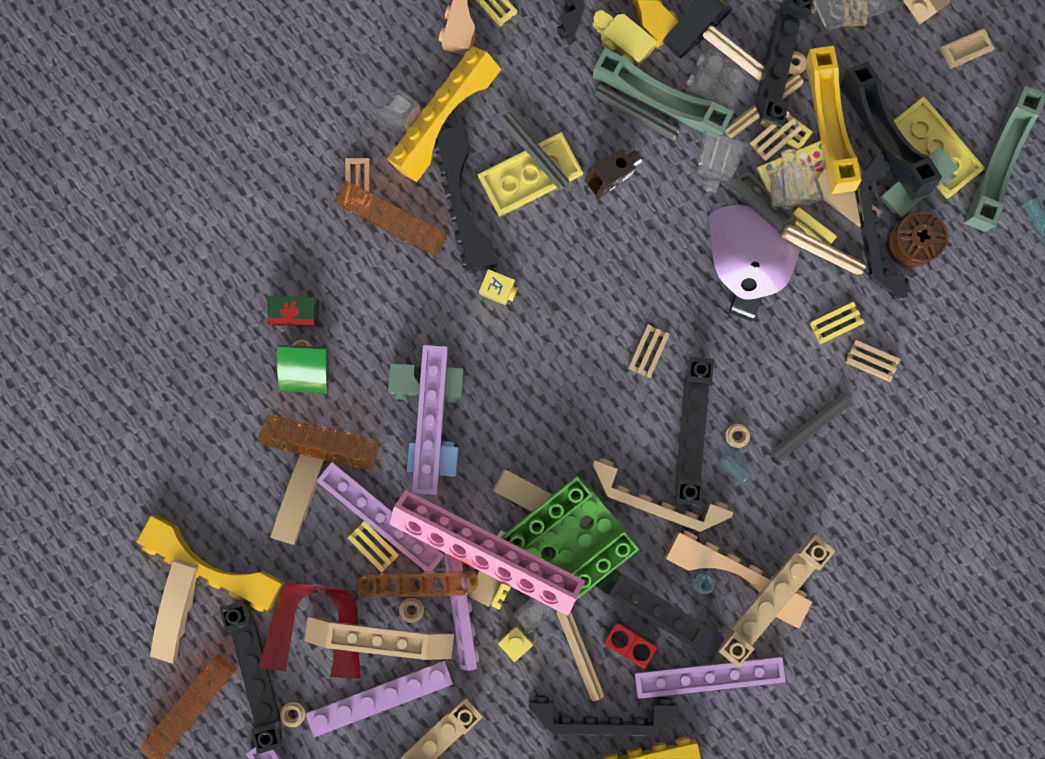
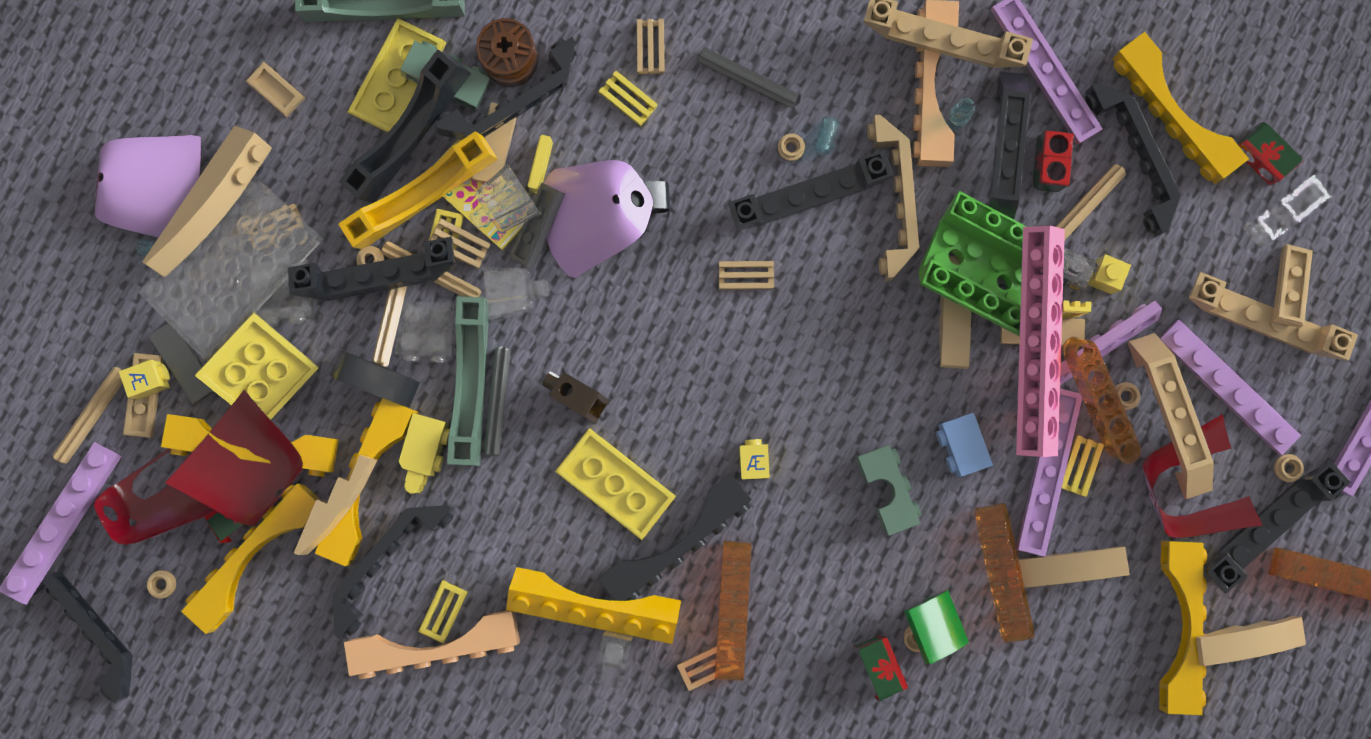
camera: 115 degrees left, 0 degrees up
(430, 420) = (930, 464): lavender plate -> none
(535, 151) = (590, 489): dark grey axle -> none
(823, 250) = (560, 142): tan axle -> none

